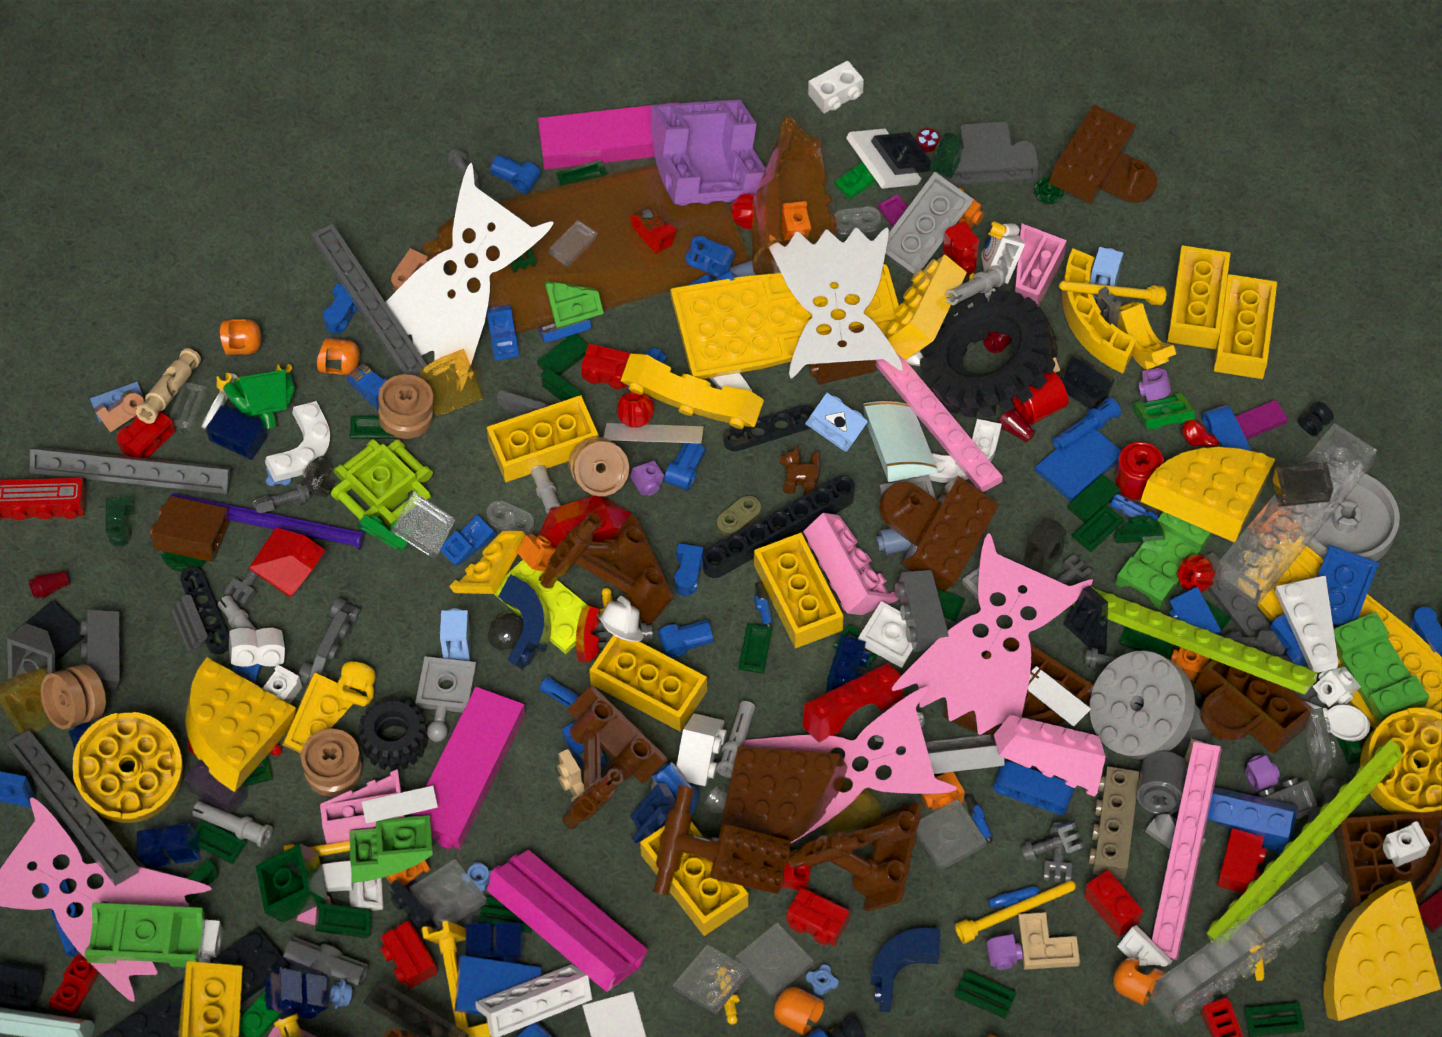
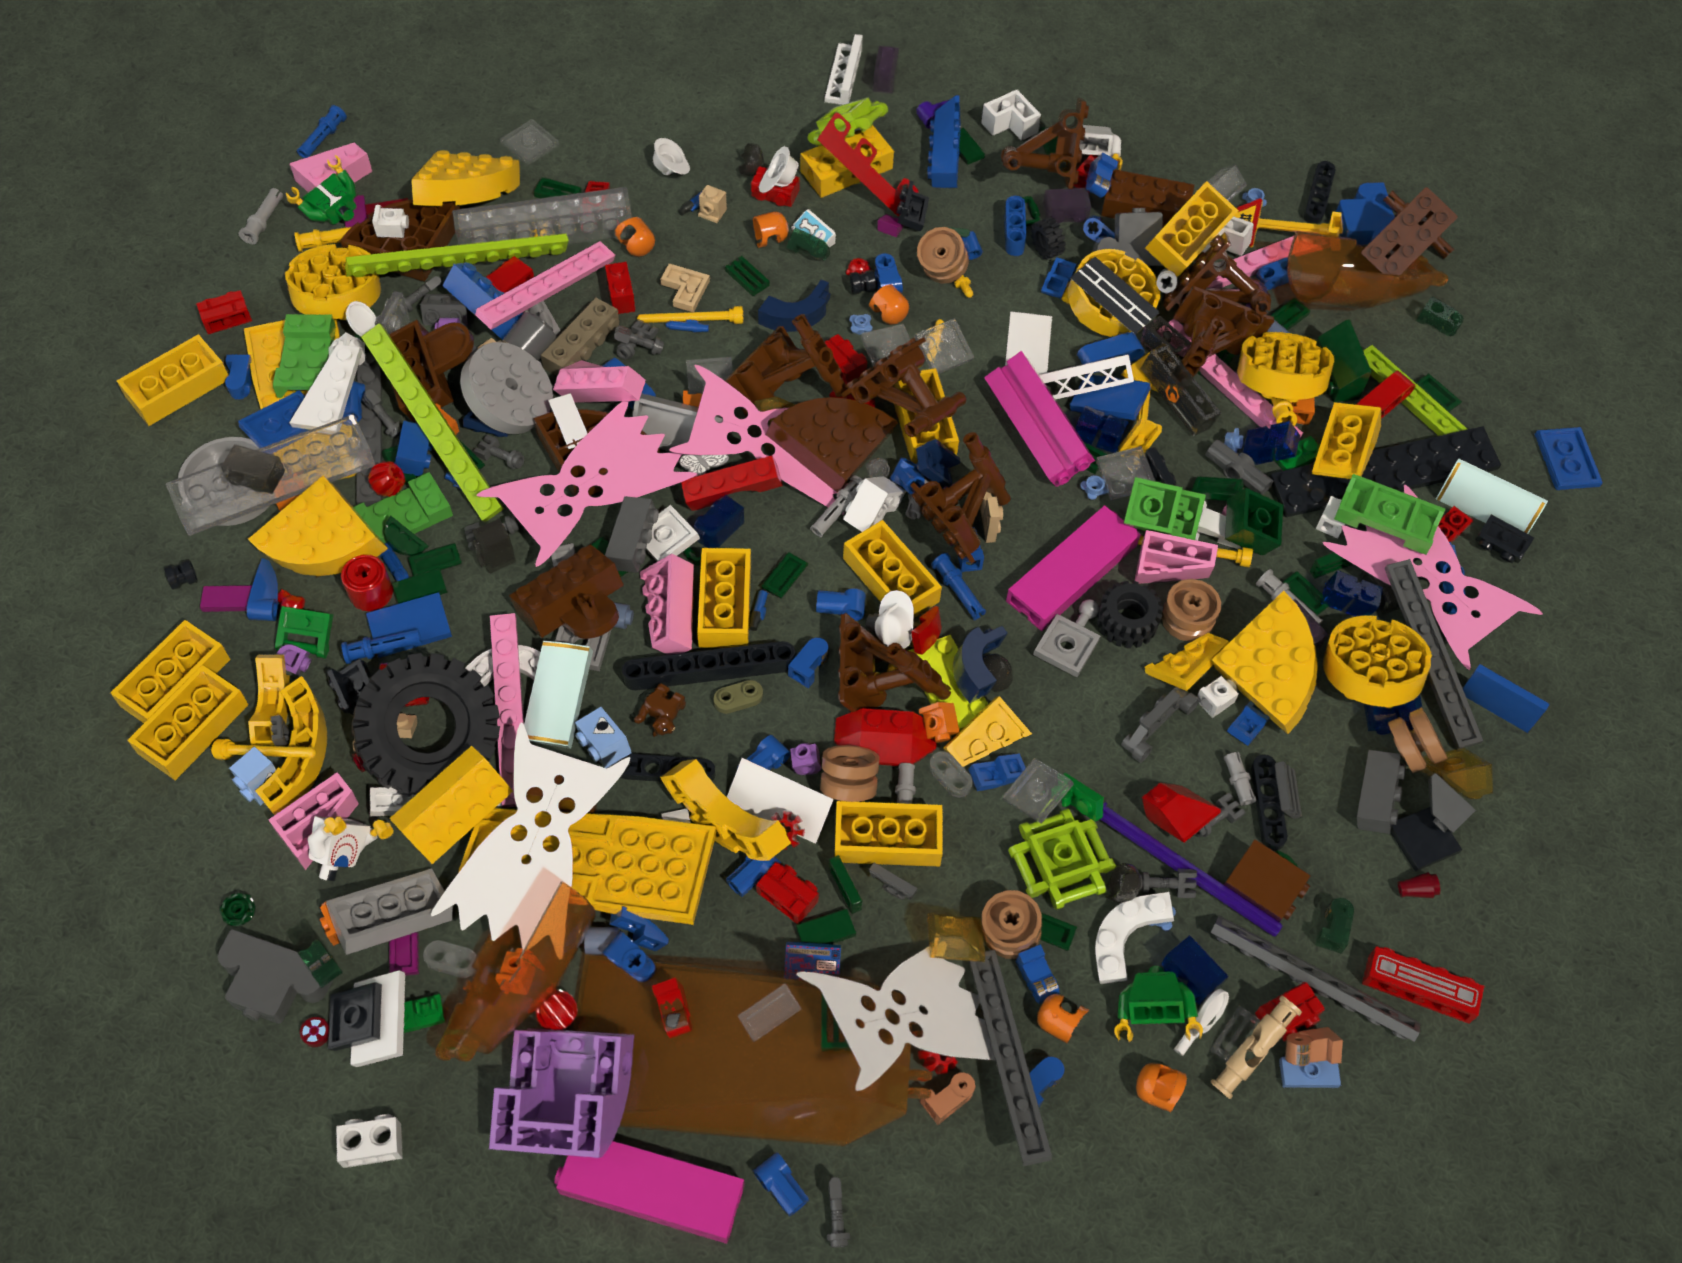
camera: 160 degrees left, 0 degrees up
(253, 647) = (1232, 733): white brick -> none
(359, 677) = (1147, 677): yellow piece -> none
(399, 804) = (1147, 538): white sticker -> none
(408, 955) = (1173, 446): red brick -> none
(455, 634) = (1046, 669): light blue brick -> none
(502, 332) = (879, 969): blue slope -> none
(572, 302) = (793, 962): bright green wing -> none
(581, 173) = (708, 1150): dark green tile -> none
(961, 246) = (373, 861): red brick -> none
(978, 817) = (680, 384): blue piece -> none
(980, 283) = (383, 803): light grey pin -> none
(1003, 952) = (718, 290): medium lavender plate -> none
(1089, 619) = (494, 473): black wing -> none
(1098, 161) = (162, 913): reddish brown brick -> none
(1140, 946) = (618, 255): white tile -> none

